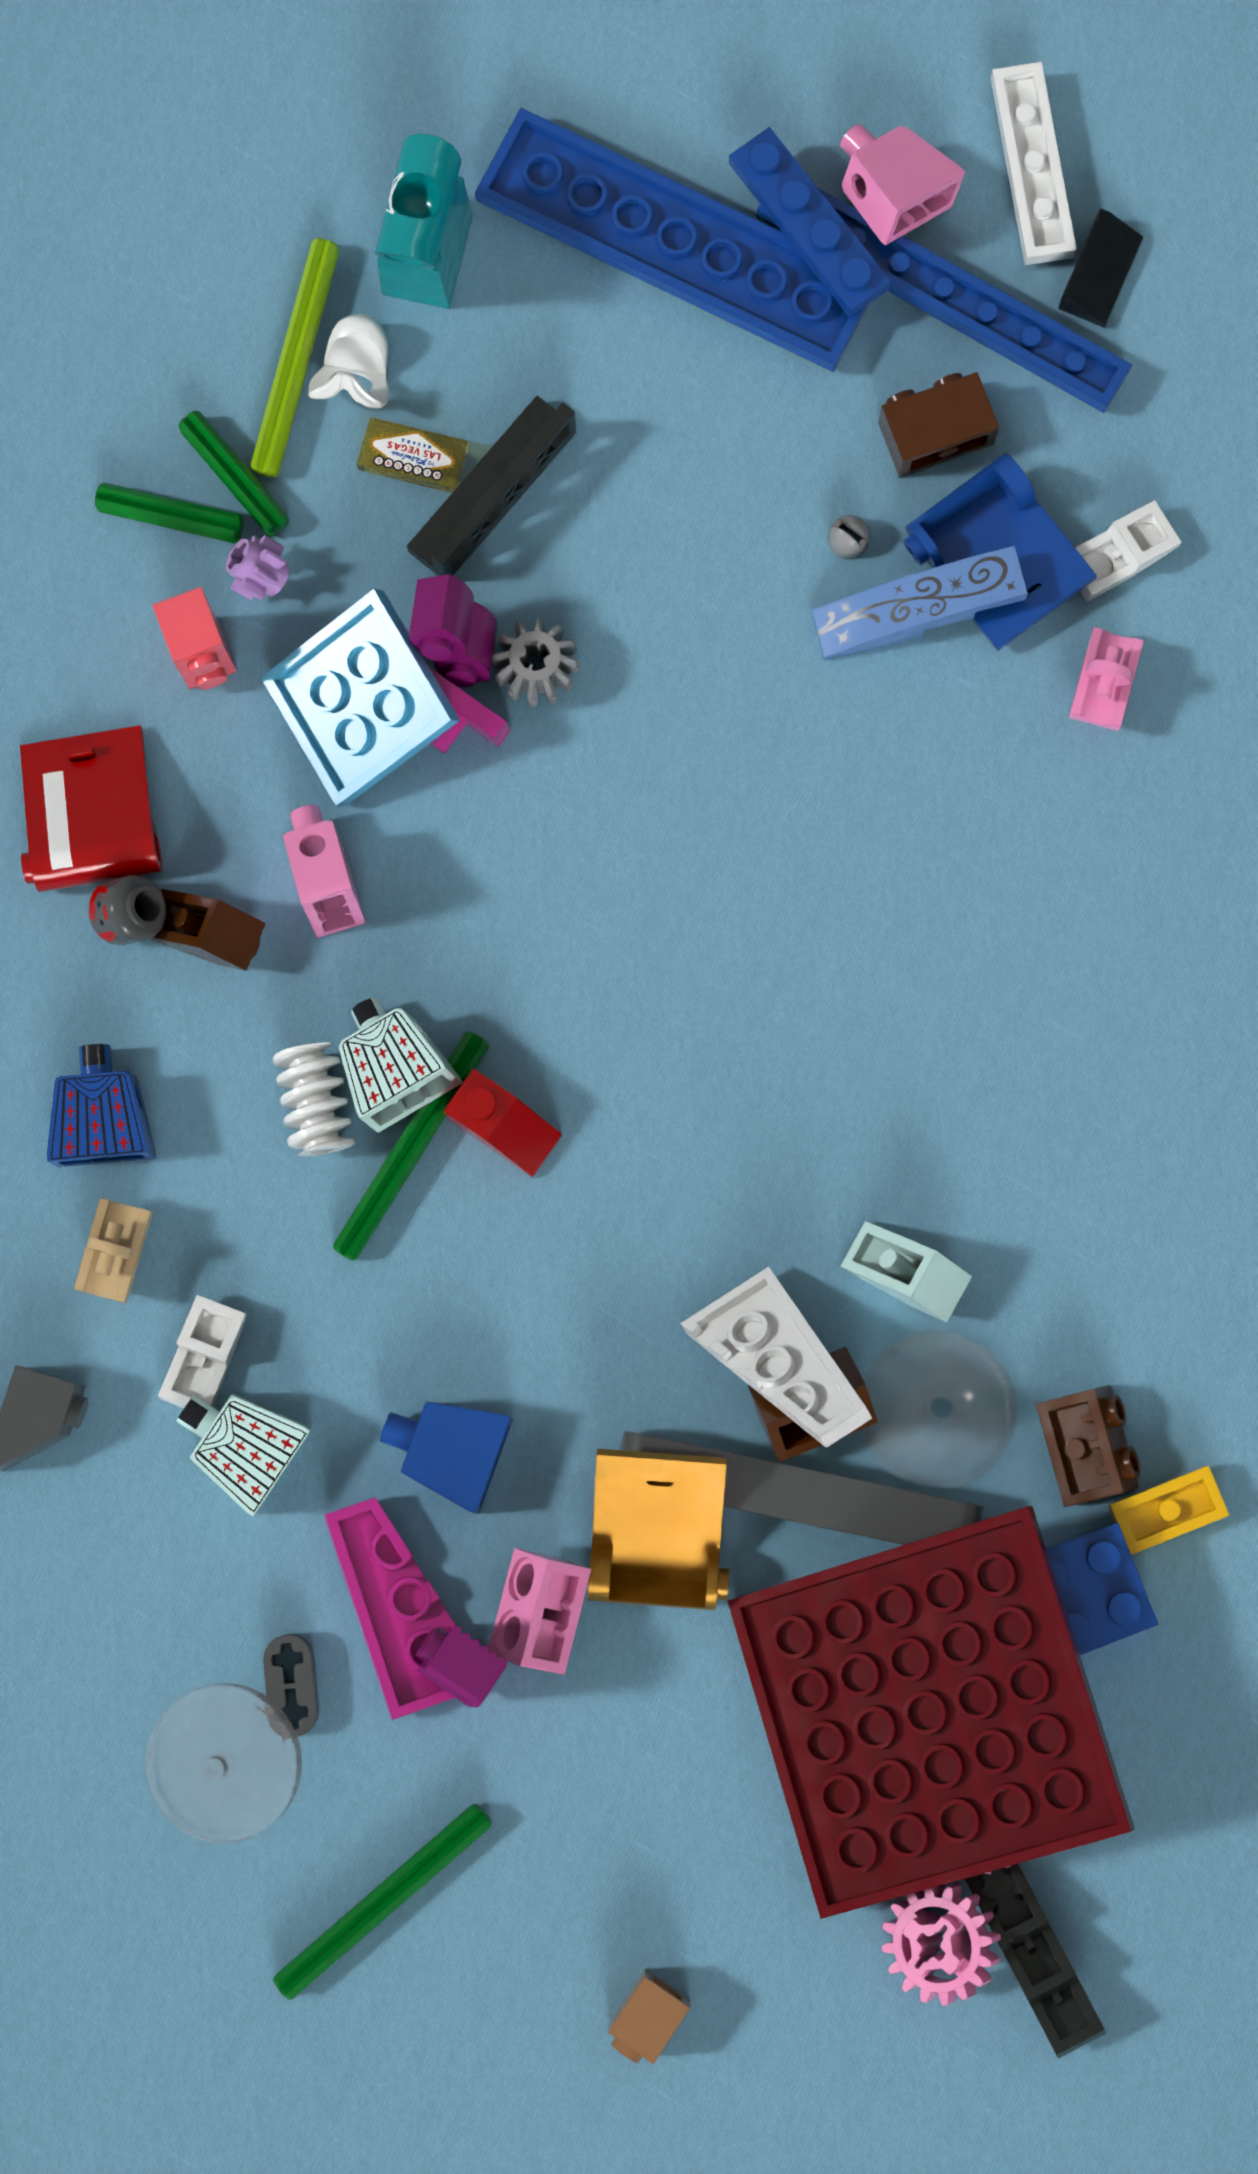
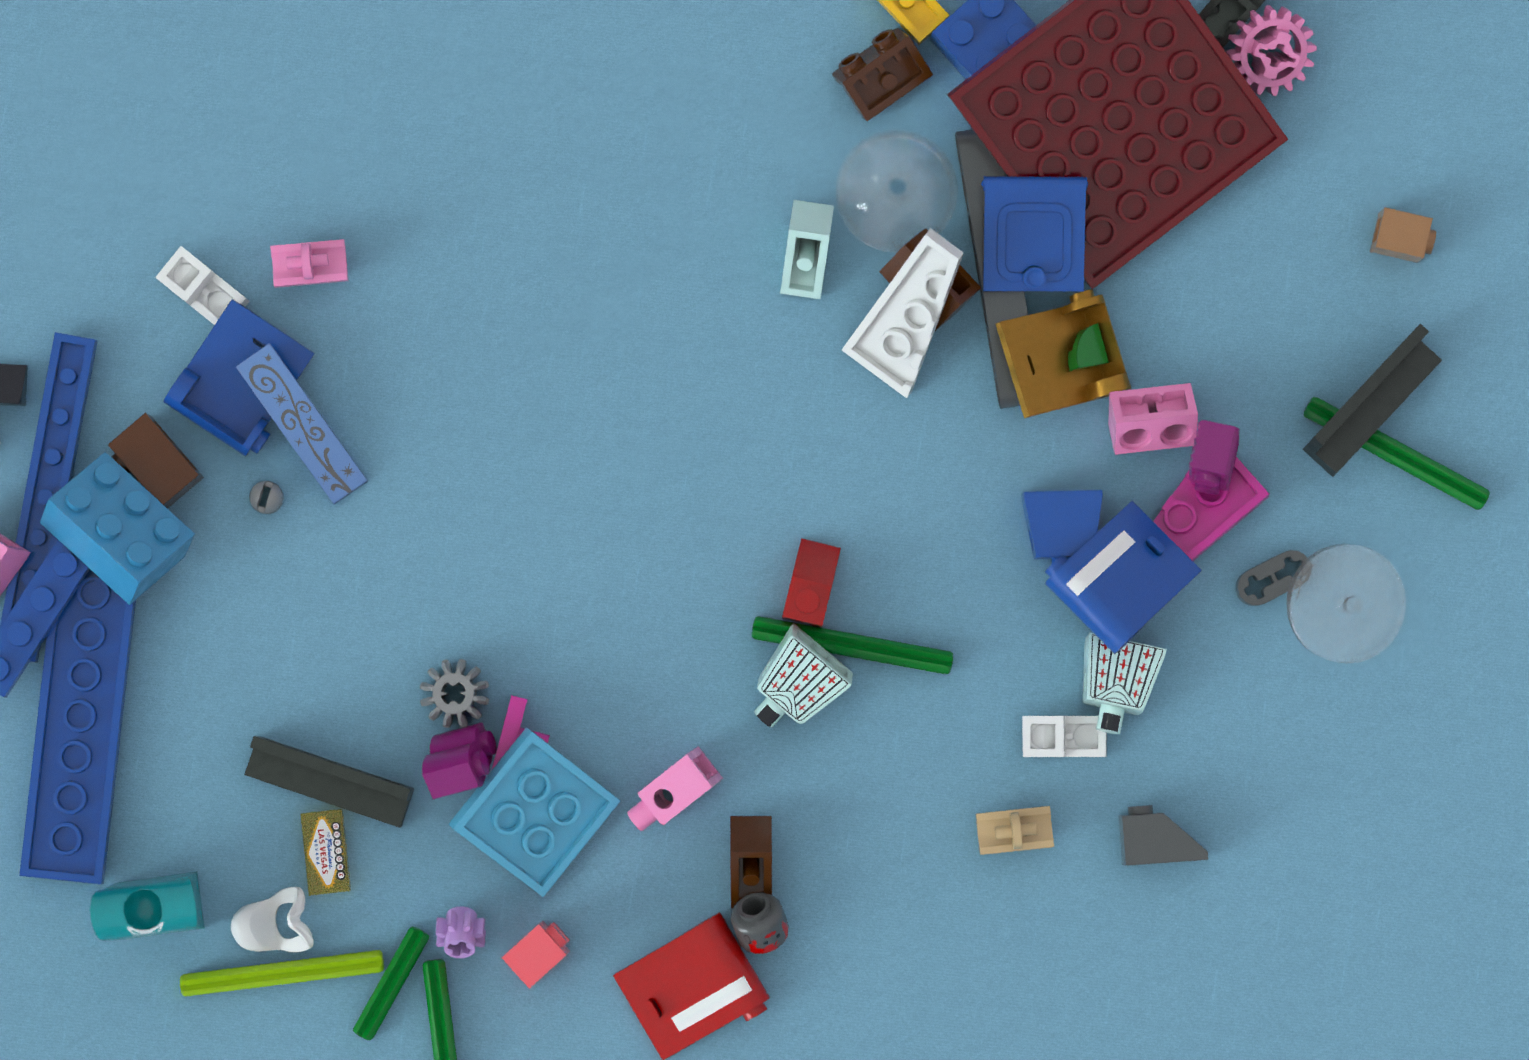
camera: 120 degrees left, 5 degrees up
(98, 1114) = (918, 883): blue torso -> none
(312, 1099) = (848, 727): white piece -> none
(359, 1489) = (1121, 576): none -> blue door
(453, 1895) = (1373, 403): none -> pearl dark grey fence
(655, 1565) = (1087, 349): none -> green tile
(830, 1553) = (1034, 225): none -> blue container
(875, 345) = (117, 528): none -> dark azure brick

